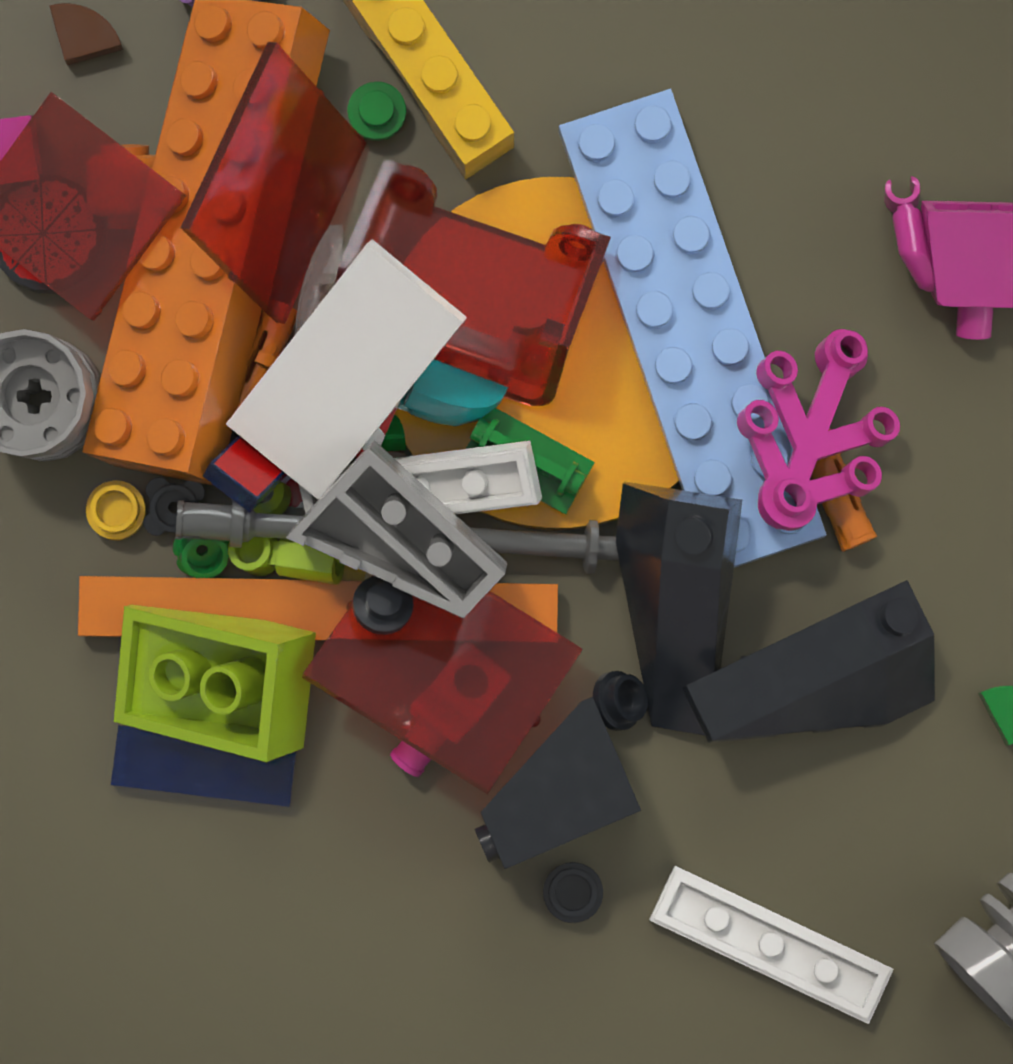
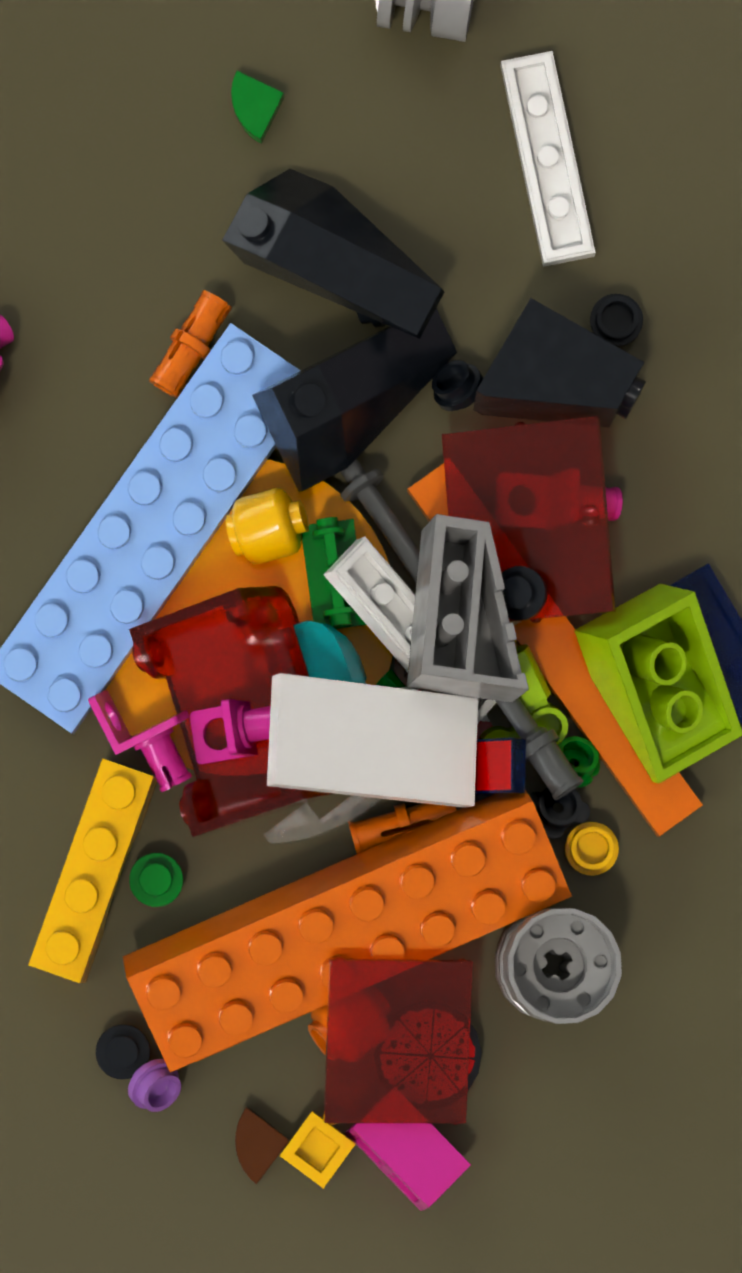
camera: 125 degrees left, 0 degrees up
(36, 74) = (317, 1149): none -> yellow plate
(274, 183) = (272, 900): clear red piece -> none
(451, 269) = (242, 730): none -> dark pink bracket
(500, 188) = (153, 742): none -> dark pink bracket
(615, 429) = (266, 526): none -> yellow head
(810, 433) = (166, 384): dark pink plant -> none

